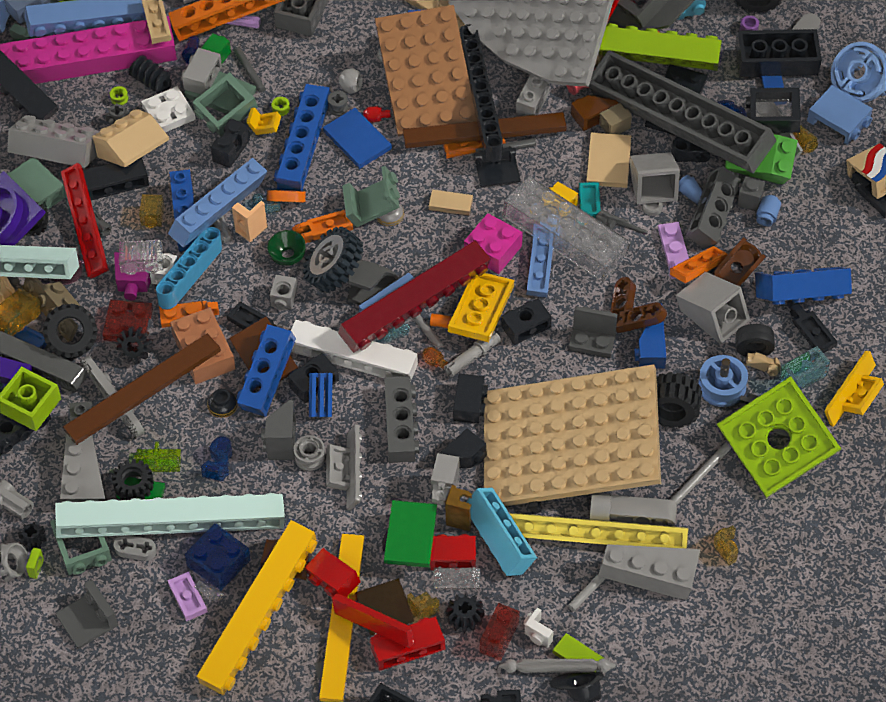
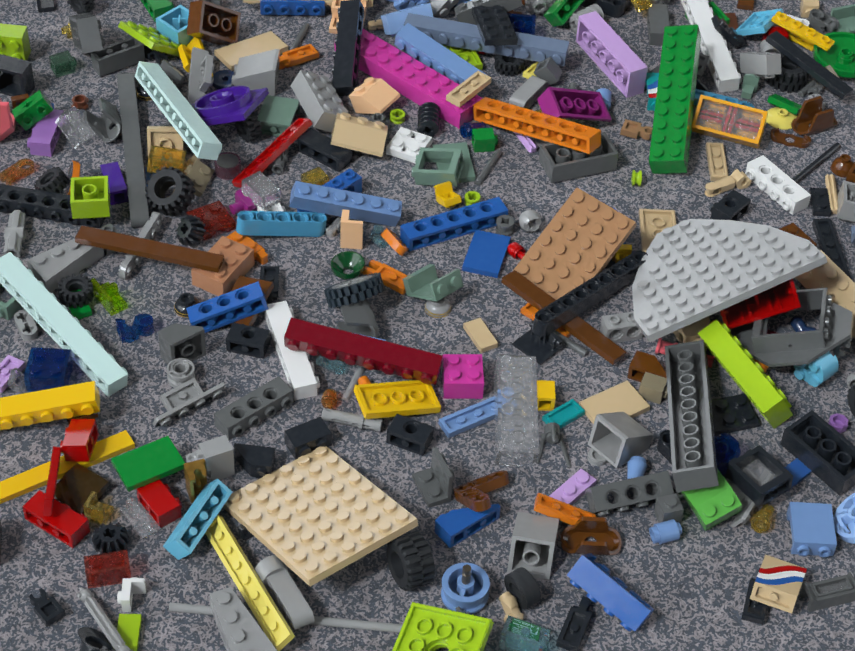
camera: 50 degrees right, 10 degrees down
(84, 96) = (373, 96): none -> light nougat slope
(201, 71) = (455, 138): light grey brick -> none
(223, 148) = (402, 185): black brick -> none
(286, 286) = (308, 285): light grey brick -> none
(328, 395) = (221, 361): blue tile -> none

